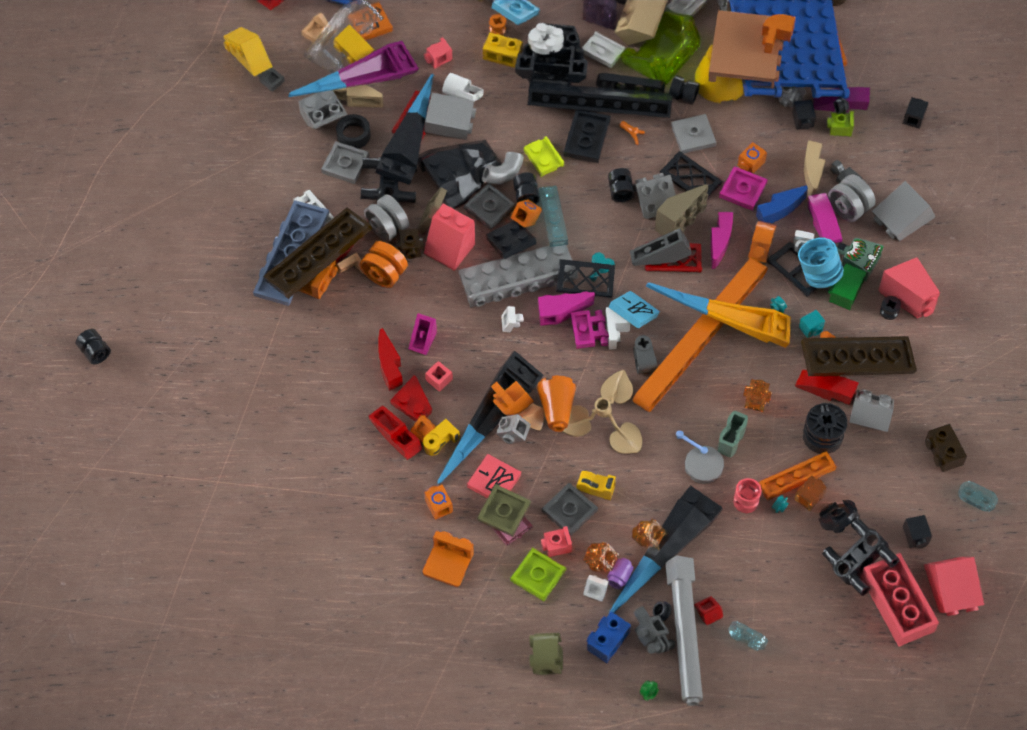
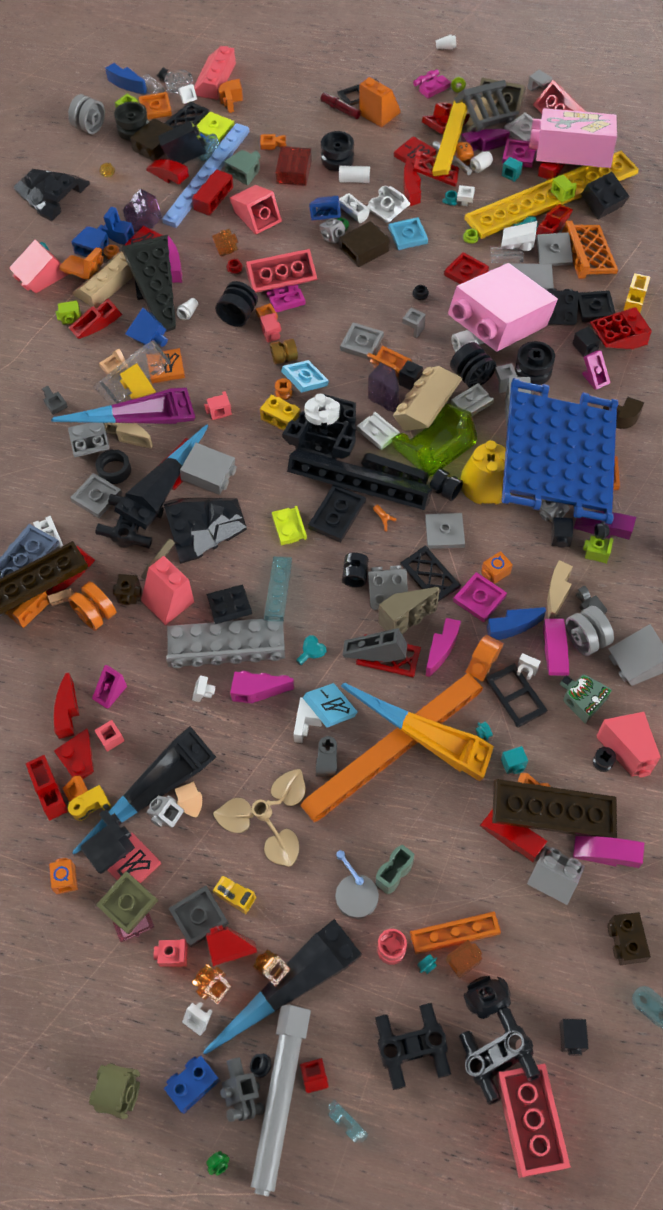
camera: 15 degrees right, 0 degrees up
(247, 50) = (37, 368): yellow wedge -> none
(386, 218) = (112, 558): light grey wheel -> none
(448, 558) = (51, 947): orange bracket -> none
(460, 87) = (228, 443): white piece -> none
(472, 465) = (108, 844): none -> black bracket
(489, 206) = (219, 566): dark grey plate -> none
(504, 172) = (245, 534): light grey cylinder -> none
(511, 400) = (172, 779): orange brick -> none
(526, 187) = (259, 556): black wheel -> none
(526, 213) = (251, 580): orange brick -> none
(538, 574) = (141, 985): lime tile -> none
(557, 400) = (218, 792): orange cone -> none
(577, 264) = (284, 645): black window -> none
(583, 329) = (273, 714): dark pink plate -> none
(605, 522) = (228, 945): none -> red slope
(620, 574) = (228, 1007): medium lavender brick -> none
(740, 51) = (514, 453): nougat panel -> none
(757, 395) = (434, 829): clear orange brick -> none
(777, 27) = (547, 437): orange brick -> none
(786, 568) = (412, 1046): none -> black piece
(820, 262) = (538, 695): medium azure wheel -> none
(824, 428) = (497, 897): black wheel -> none
(848, 287) = (562, 726): green brick -> none
(912, 381) = (609, 851): none -> dark pink slope
(955, 584) = (602, 1115): coral slope -> none

